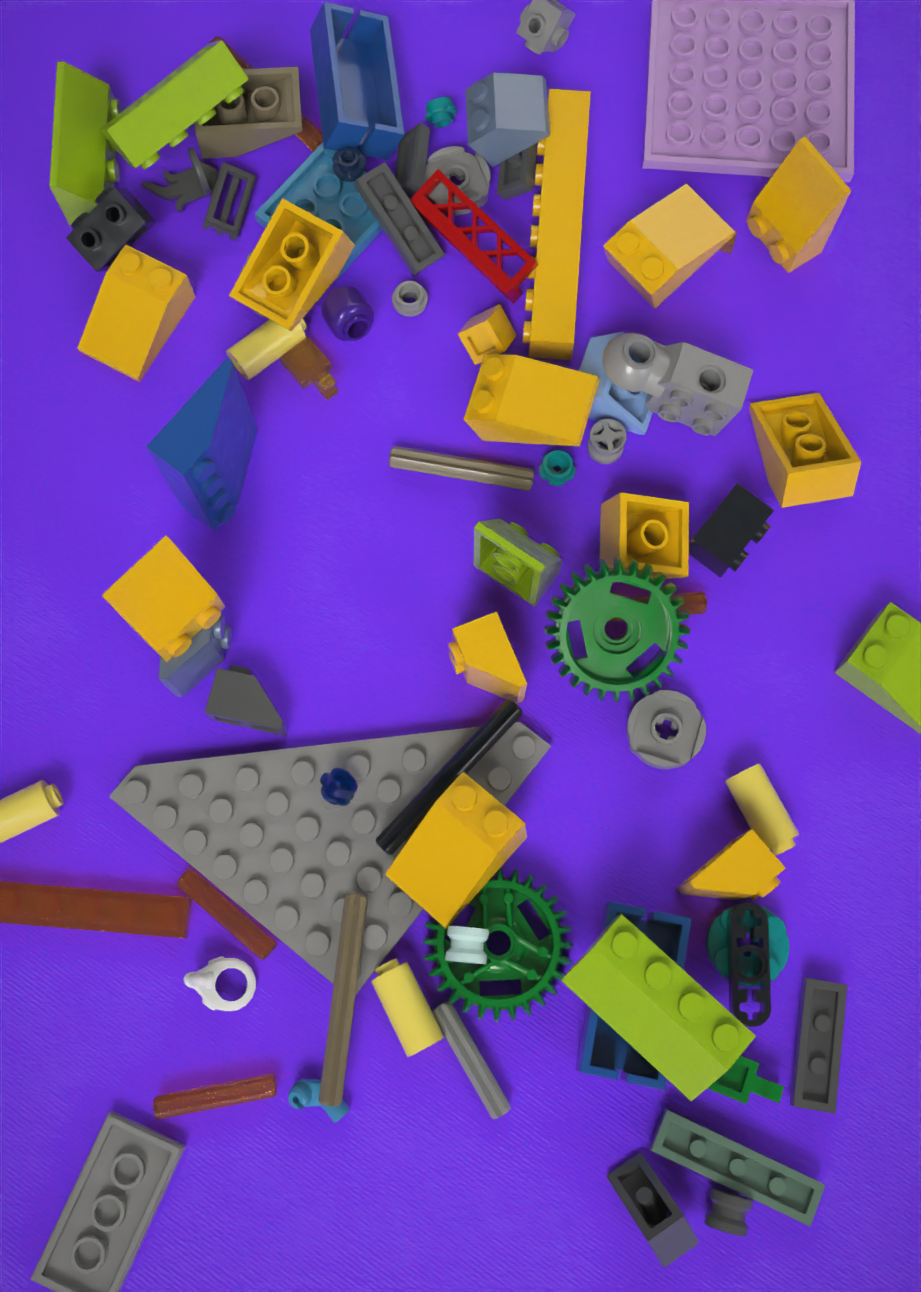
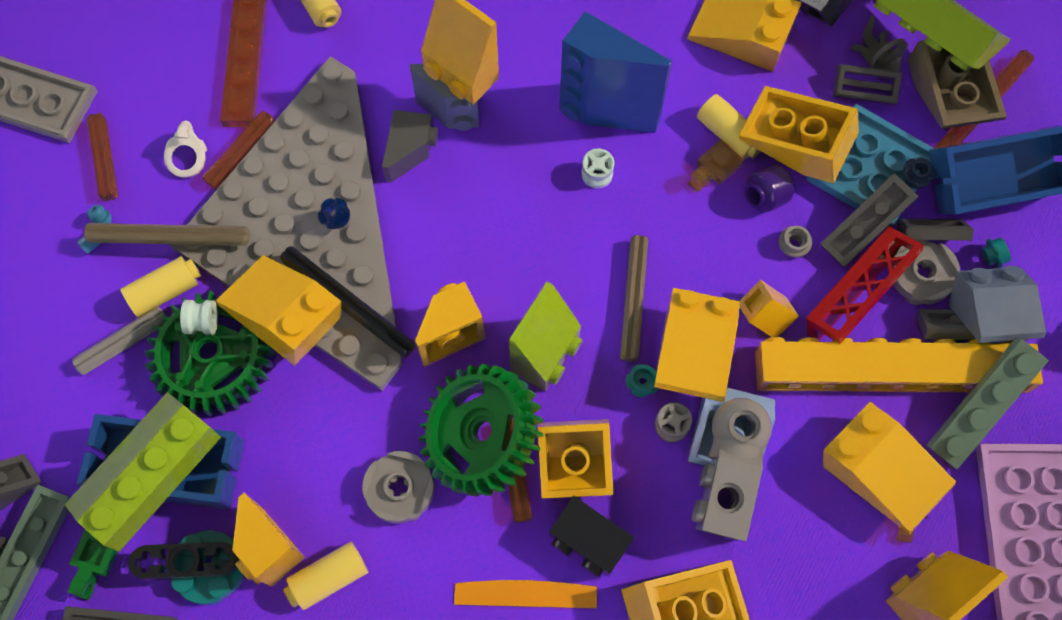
camera: 85 degrees right, 5 degrees down
(299, 482) = (601, 161): none -> light aqua wheel
(607, 143) = (987, 402): none -> sand green plate
(778, 608) = (525, 593): none -> light orange sticker

